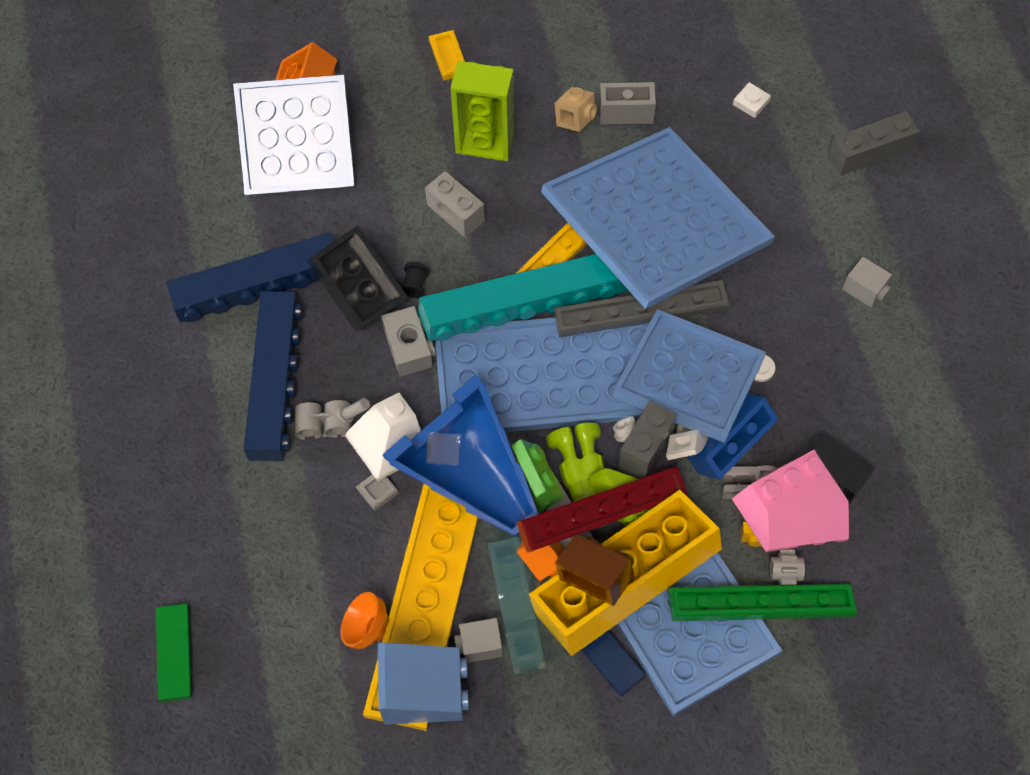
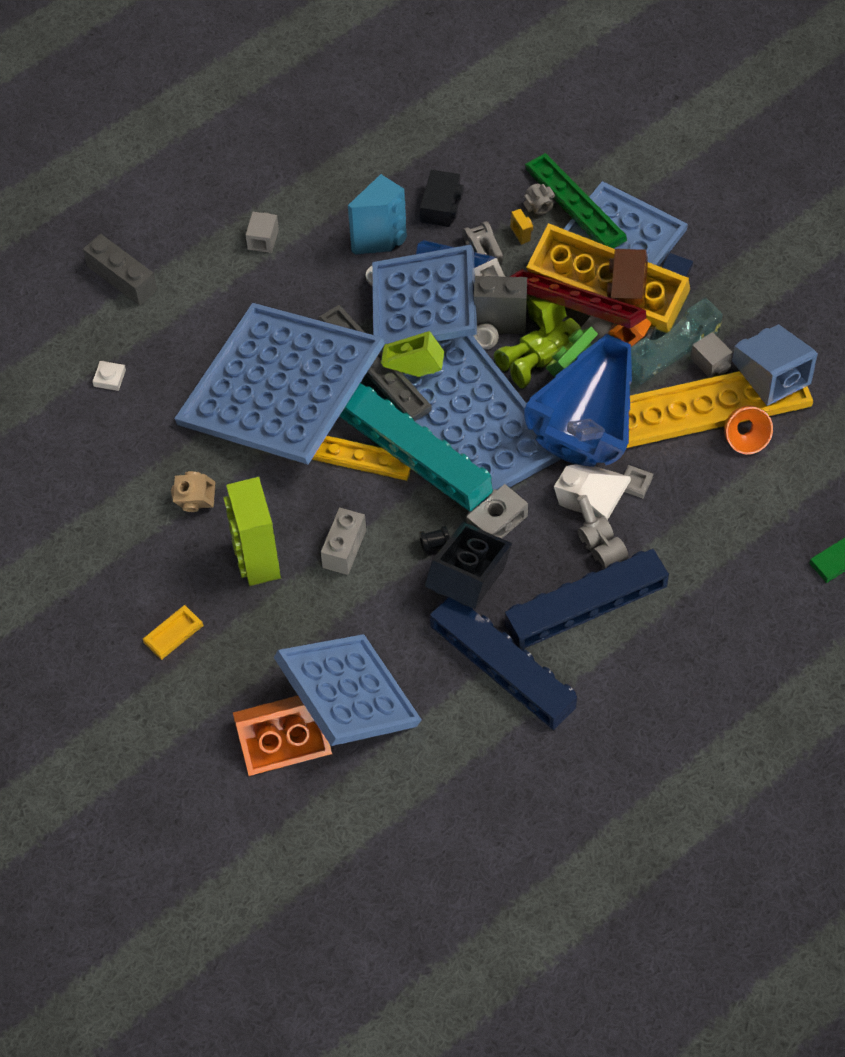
camera: 115 degrees left, 5 degrees down
(622, 336) = (414, 355): none -> lime slope
(627, 103) = (167, 452): light grey brick -> none
(795, 506) = (489, 205): bright pink wedge -> none
(823, 377) = (378, 217): none -> dark azure slope

